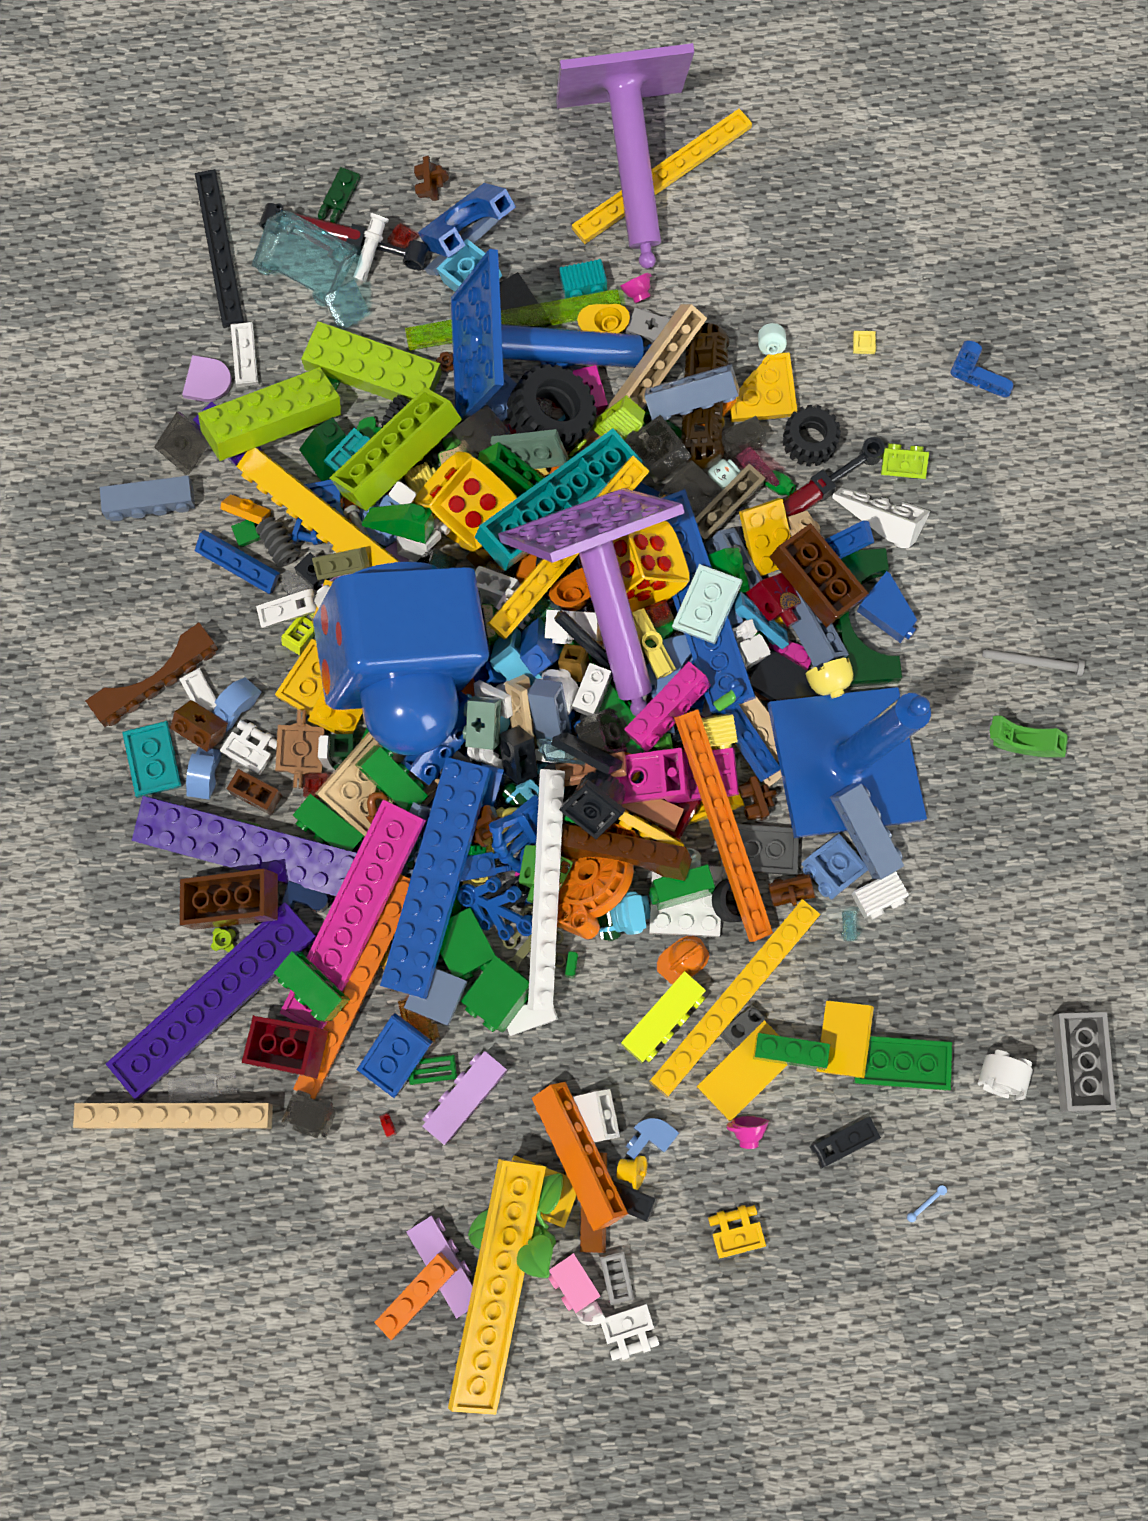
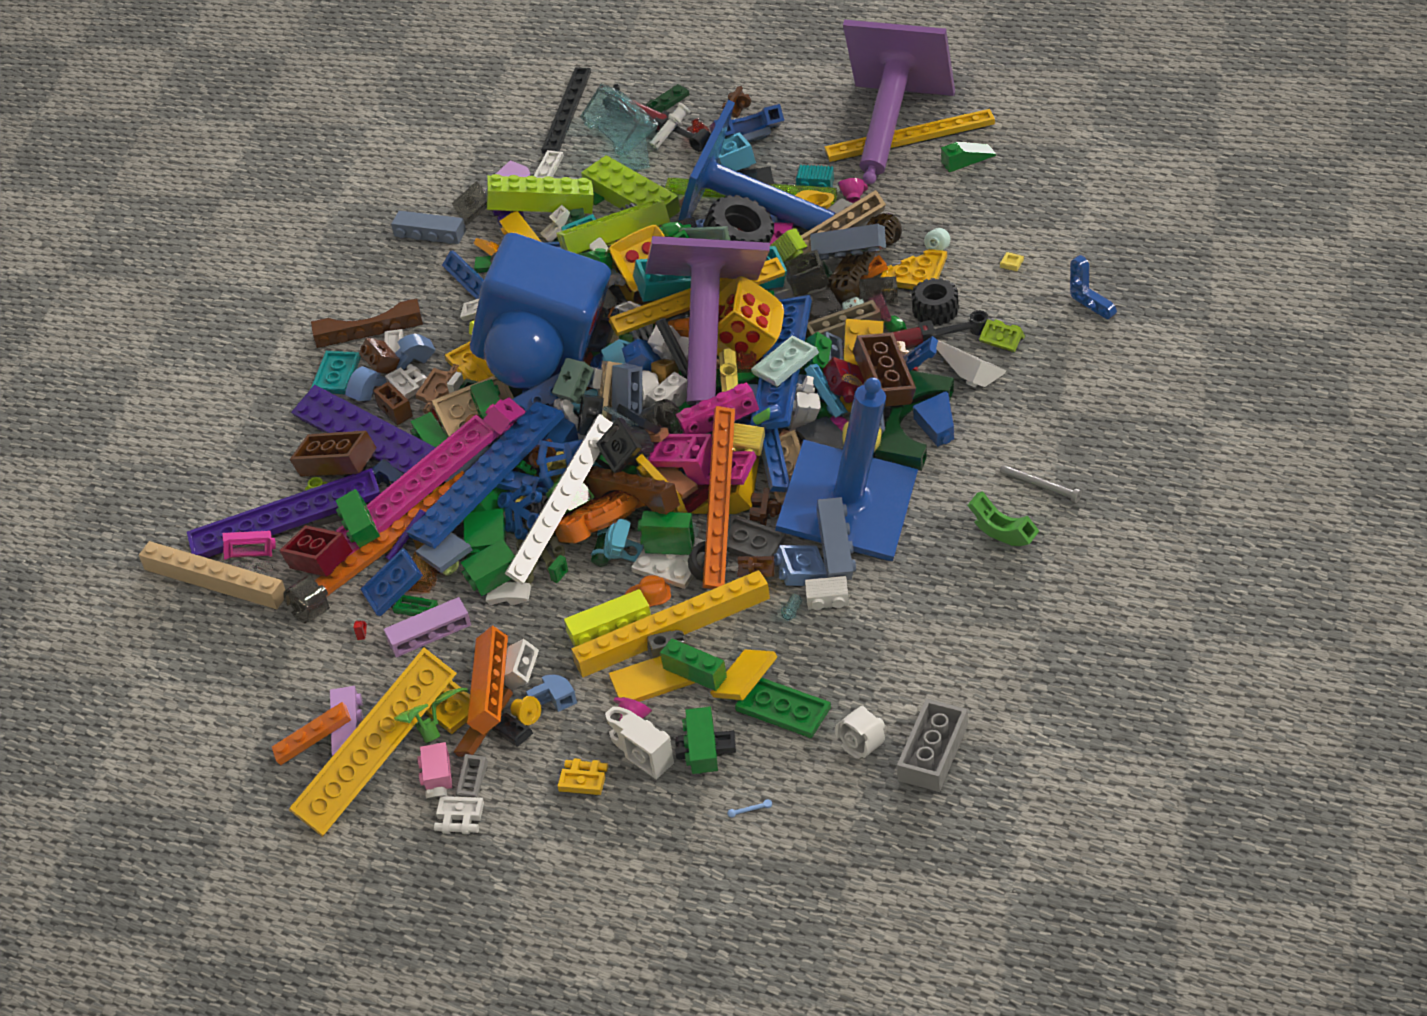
camera: 30 degrees right, 30 degrees down
(194, 1061) = (248, 544): none -> dark pink window
(310, 448) = (559, 219): none -> white slope
(375, 984) = (404, 537): none -> dark purple bar
(422, 795) = (503, 415): none -> dark pink brick
(479, 439) = (672, 228): none -> green plant
(741, 190) = (963, 154): none -> green slope
(784, 1174) = (641, 742): none -> white brick
(847, 1150) = (700, 740): none -> green brick

